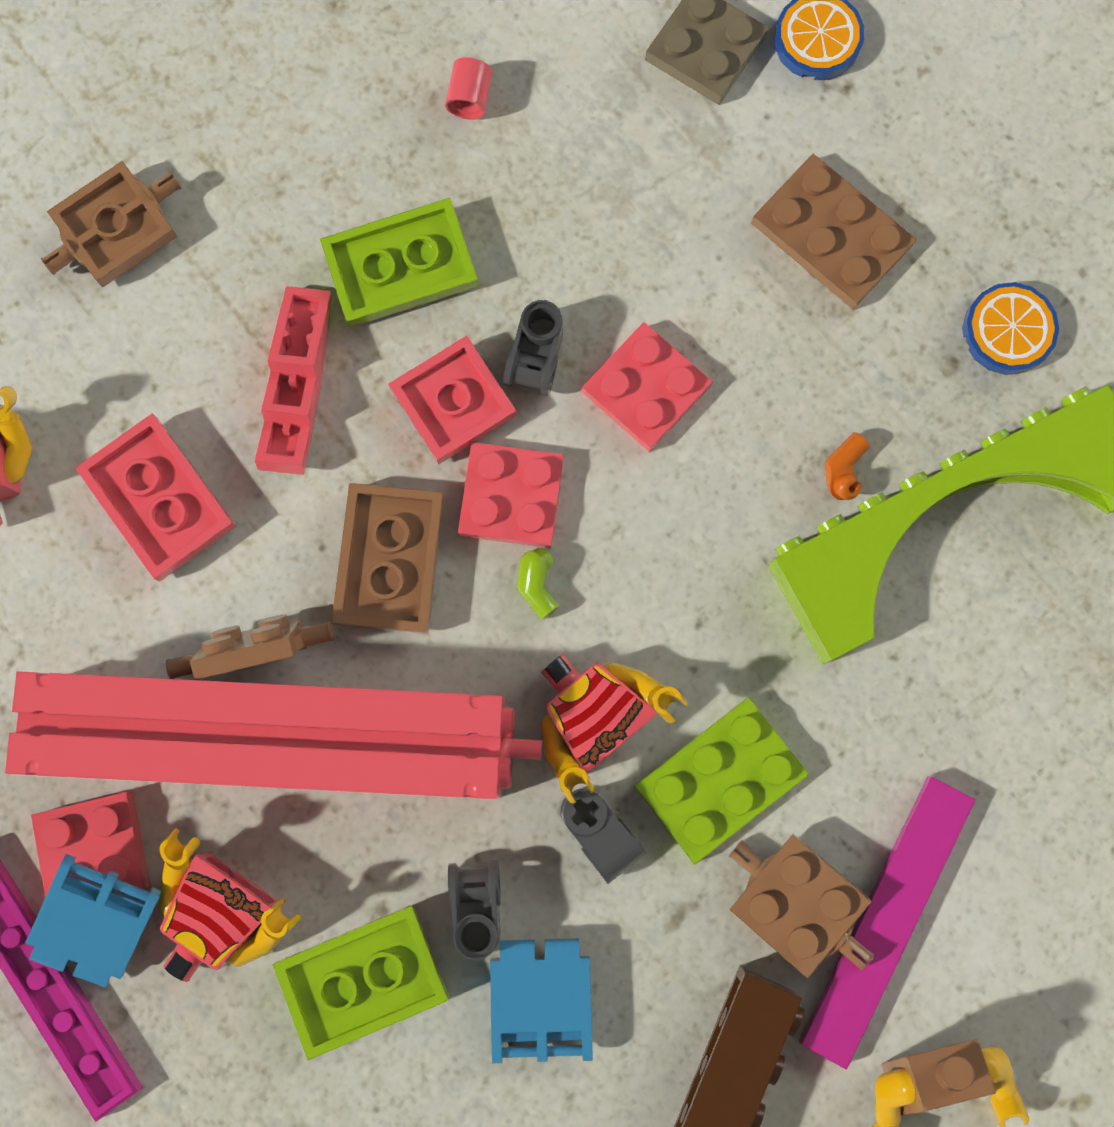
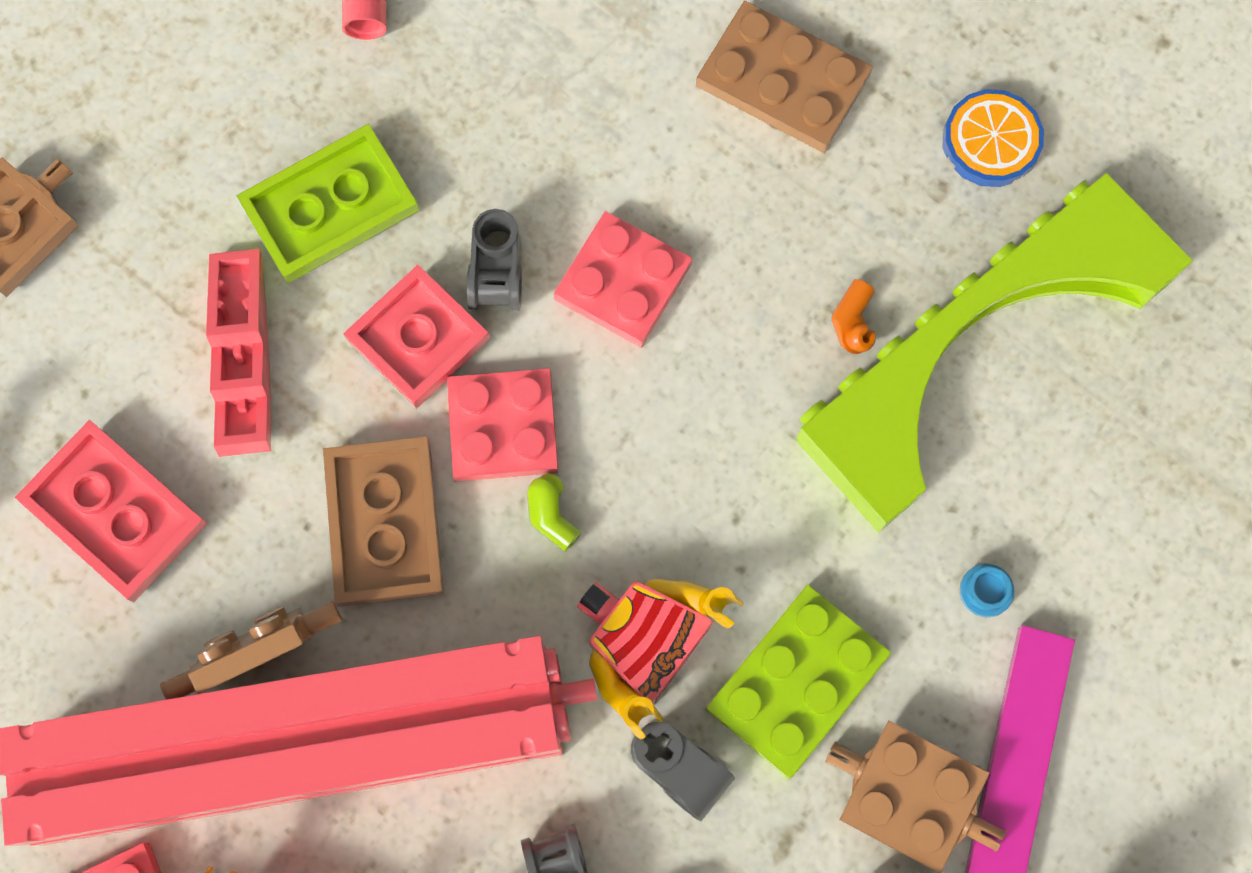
camera: 15 degrees left, 5 degrees down
(907, 738) = (986, 590): none -> dark azure plate

